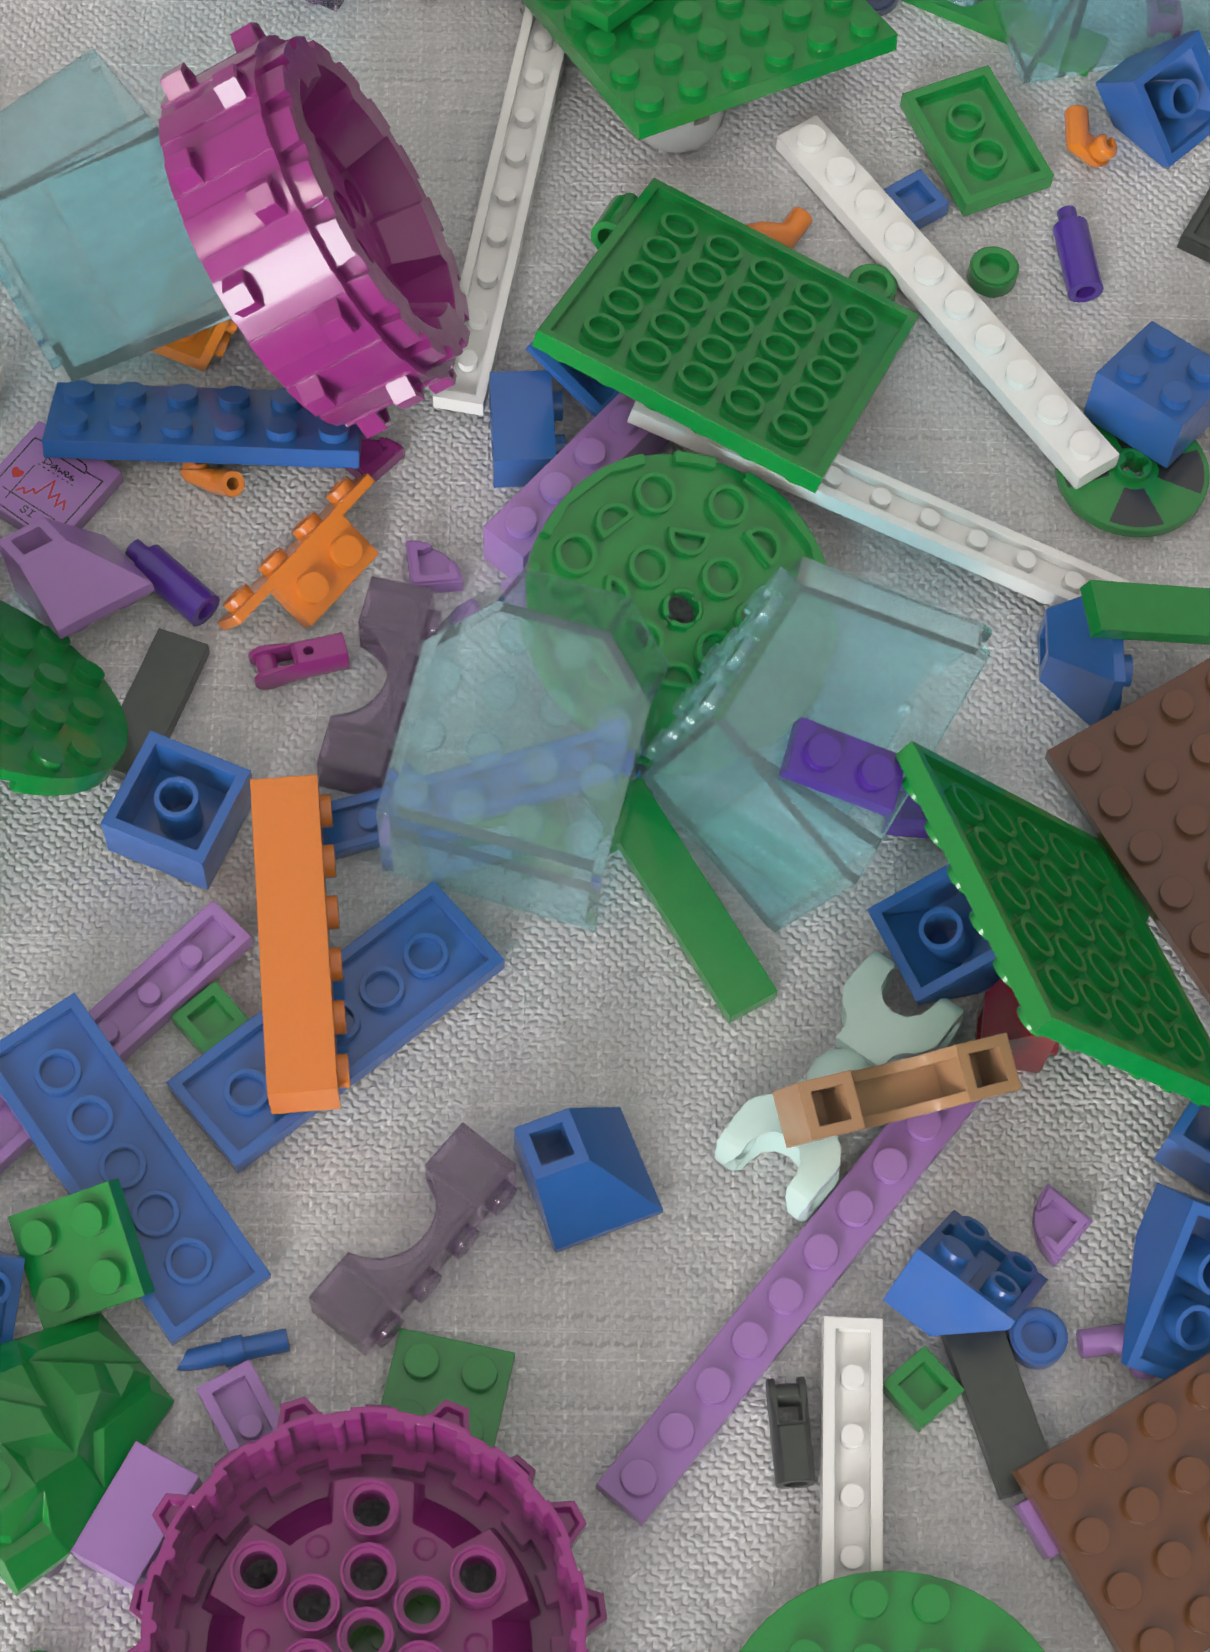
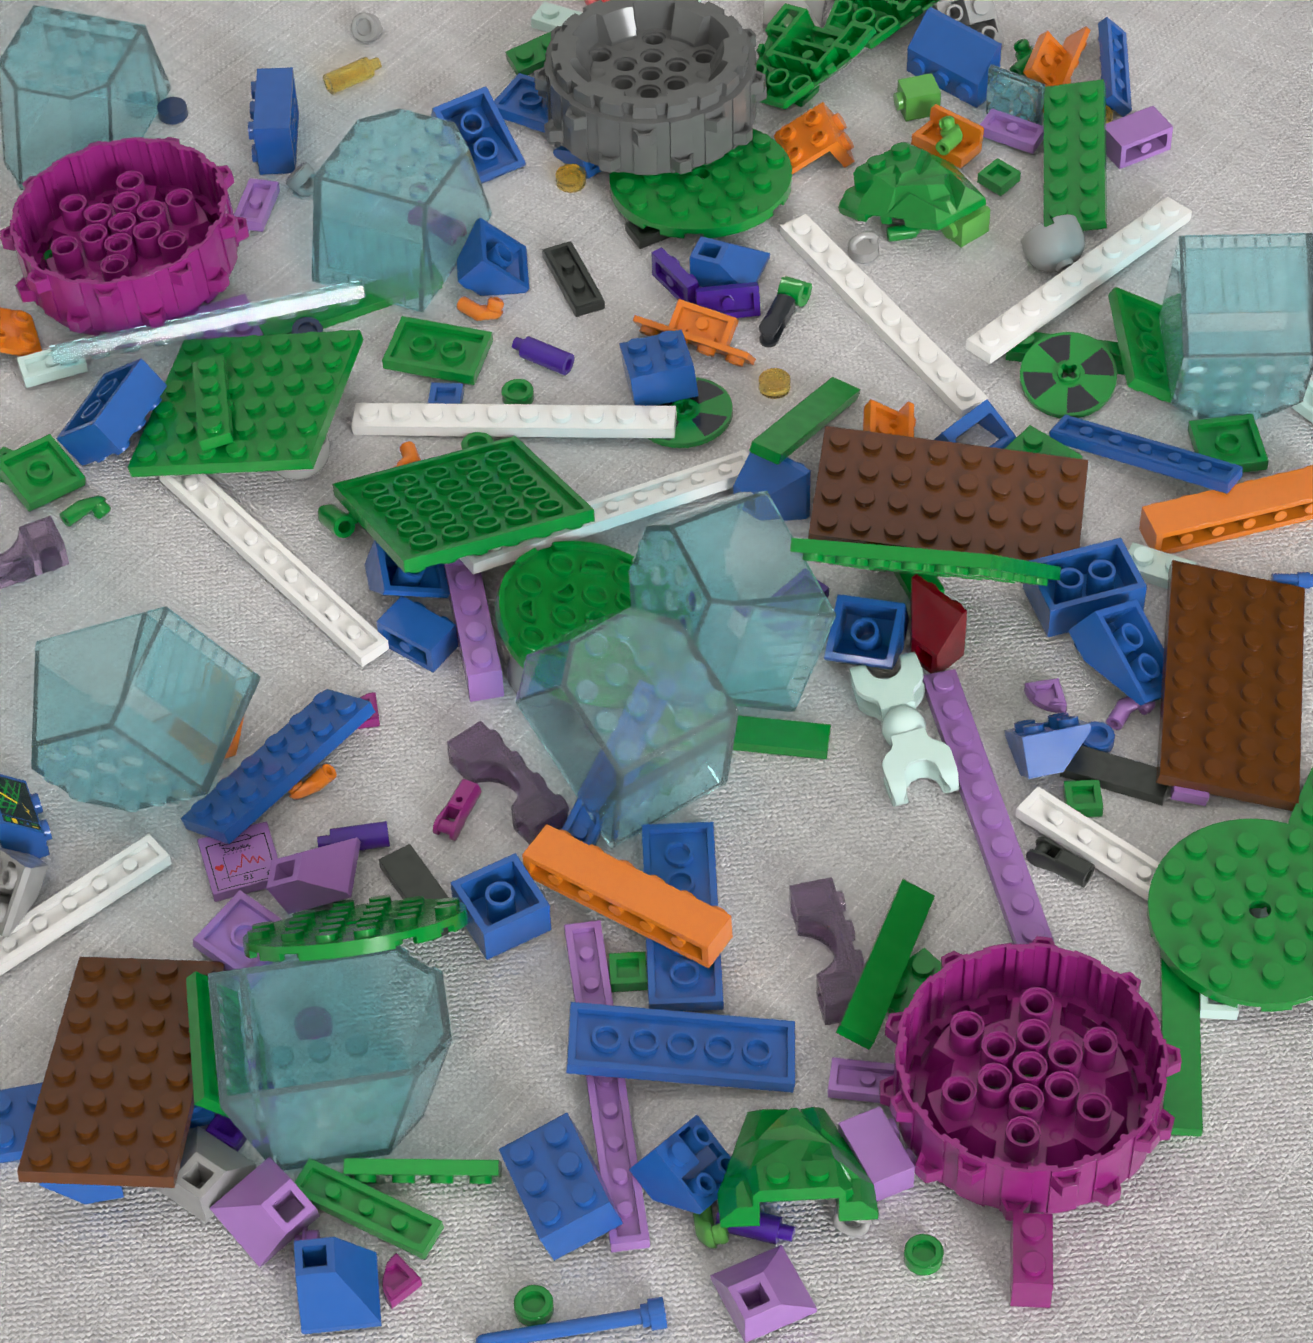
camera: 45 degrees left, 15 degrees down
(81, 1254) = (715, 1089): green plate -> none
(235, 1350) = (818, 1067): blue piece -> none
(314, 228) = (261, 603): magenta wheel -> none
(314, 566) = (405, 771): orange bracket -> none
(429, 1327) = (885, 965): none -> green tile
(432, 568) = (455, 724): medium lavender tile -> none
(584, 1174) = (858, 862): blue slope -> none
(842, 766) = (777, 574): dark purple plate -> none
(896, 1090) = (936, 693): medium nougat arch -> none

